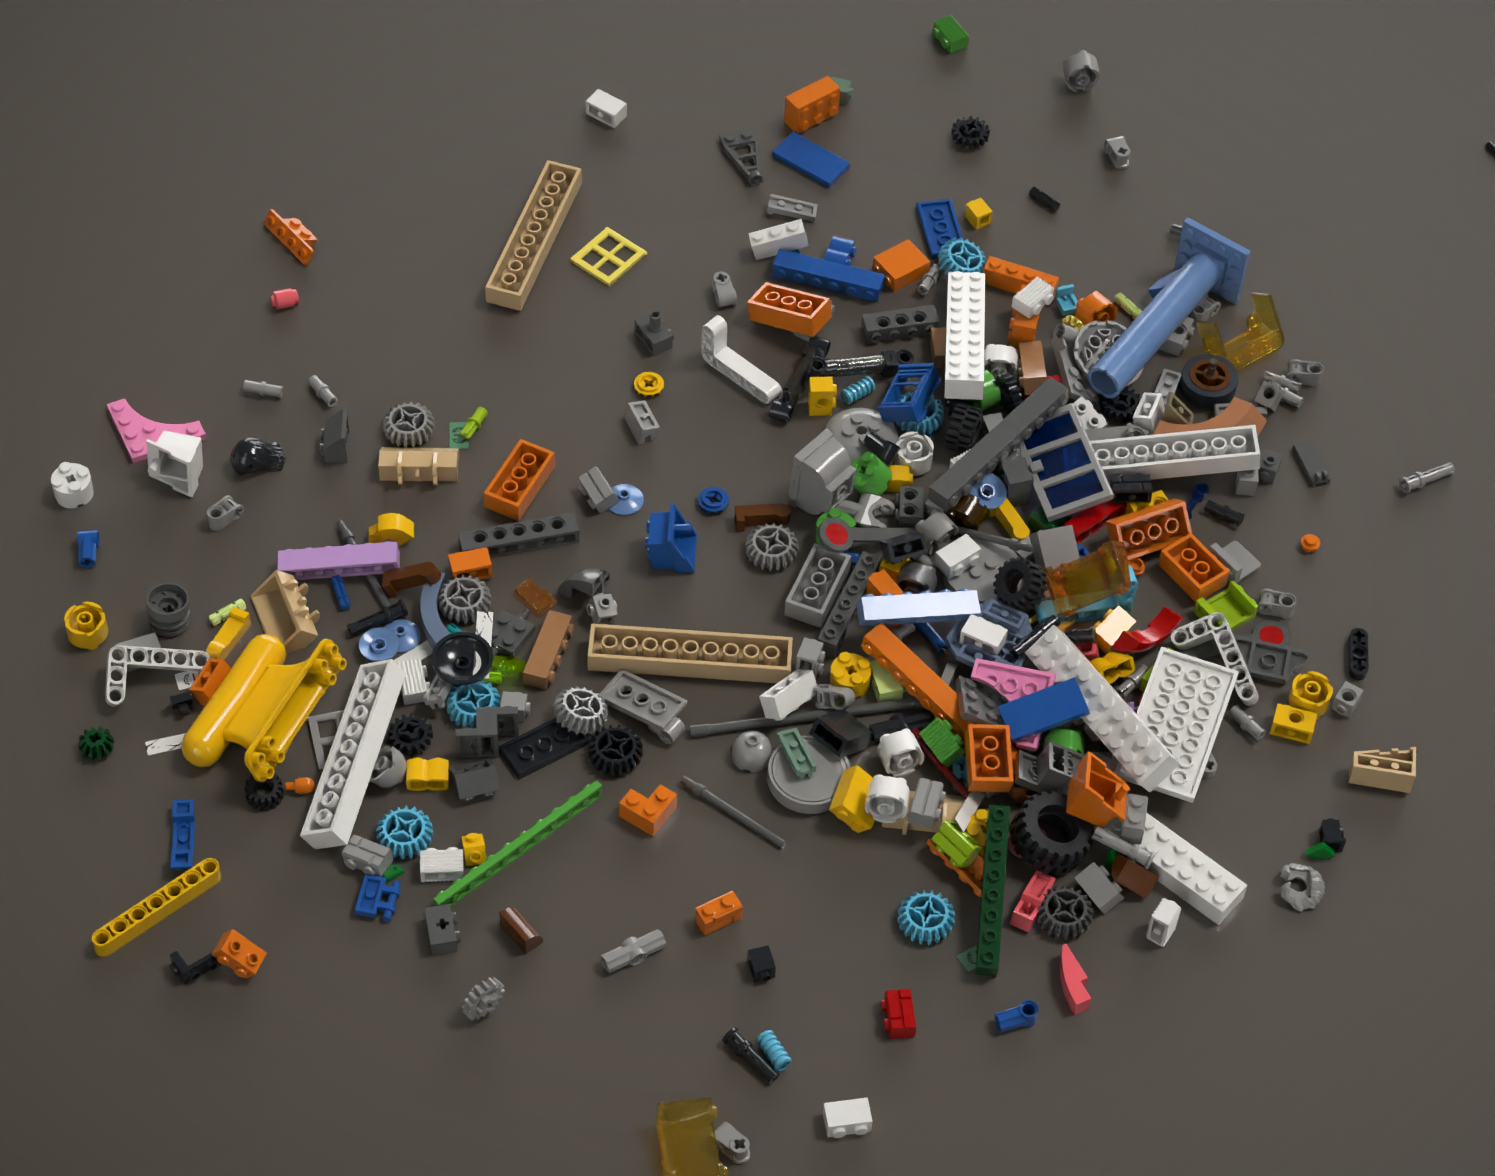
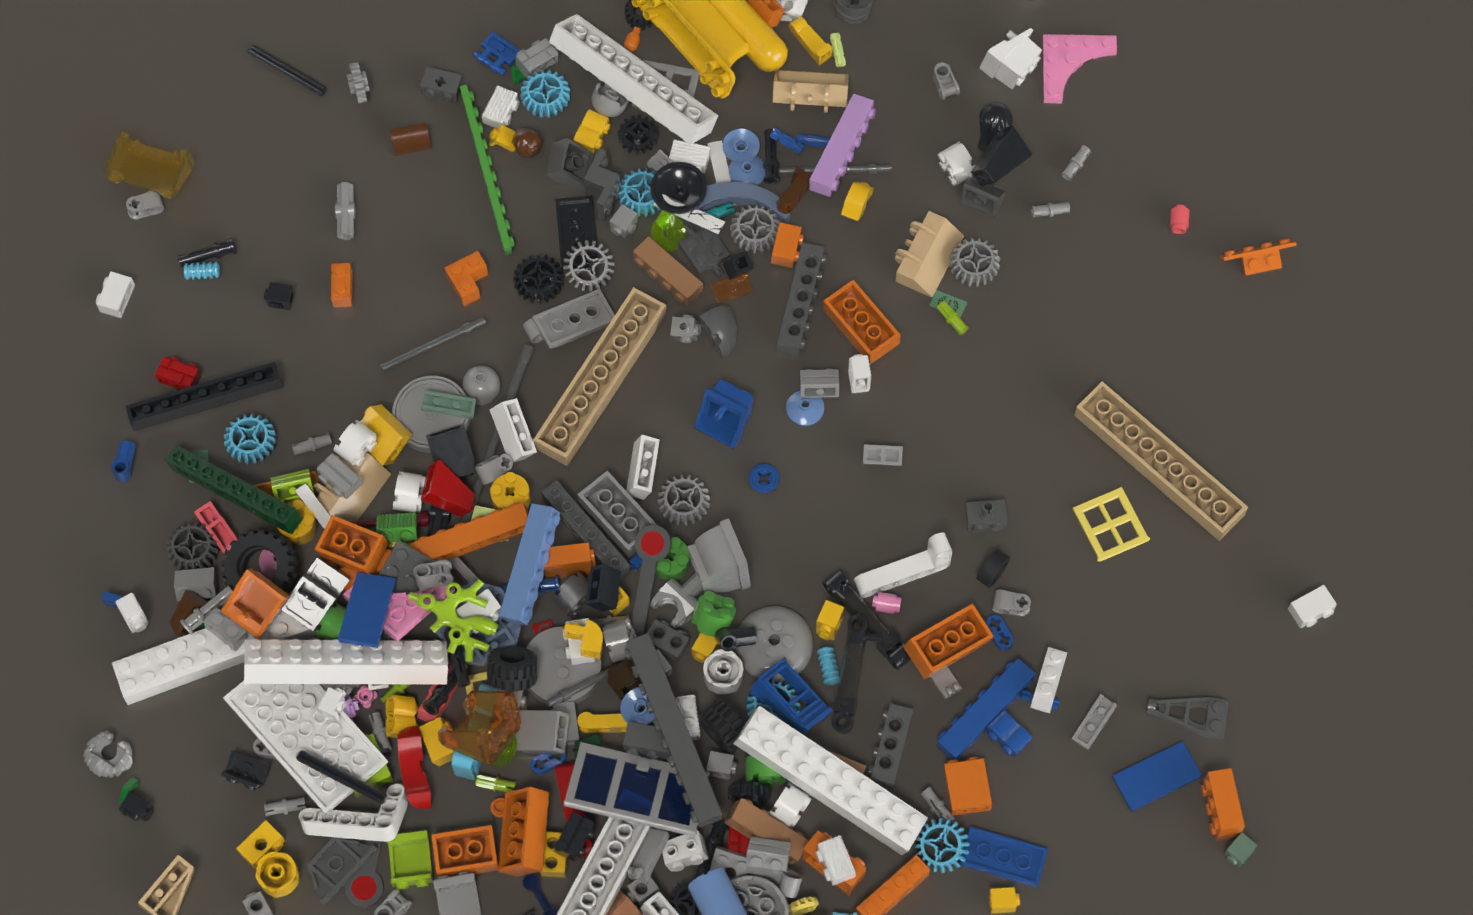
camera: 120 degrees right, 15 degrees up
(297, 427) = (1001, 156): none -> black slope
(313, 466) = (956, 162): none -> white brick
(354, 609) = (786, 140): none -> blue axle
(470, 818) = (527, 142): none -> reddish brown hair
(496, 1088) = (287, 70): none -> black axle
(513, 593) = (737, 265): none -> black brick
(574, 459) = (859, 373): none -> white brick
(649, 378) = (932, 479): yellow gear -> none
(702, 297) = (993, 568): none -> black tyre
(750, 290) = (1003, 630): none -> blue beam
(760, 514) = (727, 503): reddish brown leg -> none
(761, 585) = (642, 467): none -> white brick
(776, 370) = (886, 603): none -> bright pink brick
(811, 656) = (539, 465): light grey brick -> none
(883, 715) = (446, 490): none -> red slope
(898, 863) = (311, 444): none -> light grey pin
(910, 974) = (203, 396): none -> black brick
(957, 535) = (589, 635): none -> yellow brick
(975, 671) = (431, 574): none -> light grey piece
(1013, 635) = (446, 616): none -> lime plant
(1054, 350) = (768, 854): none -> light grey brick
(1073, 982) = (128, 519): coral slope -> none
(1144, 702) = (332, 703): none -> white brick
(1159, 952) = (109, 599): none -> blue tile
(1201, 669) = (341, 777): none -> black axle
(1239, 765) = (246, 770): none -> black bracket

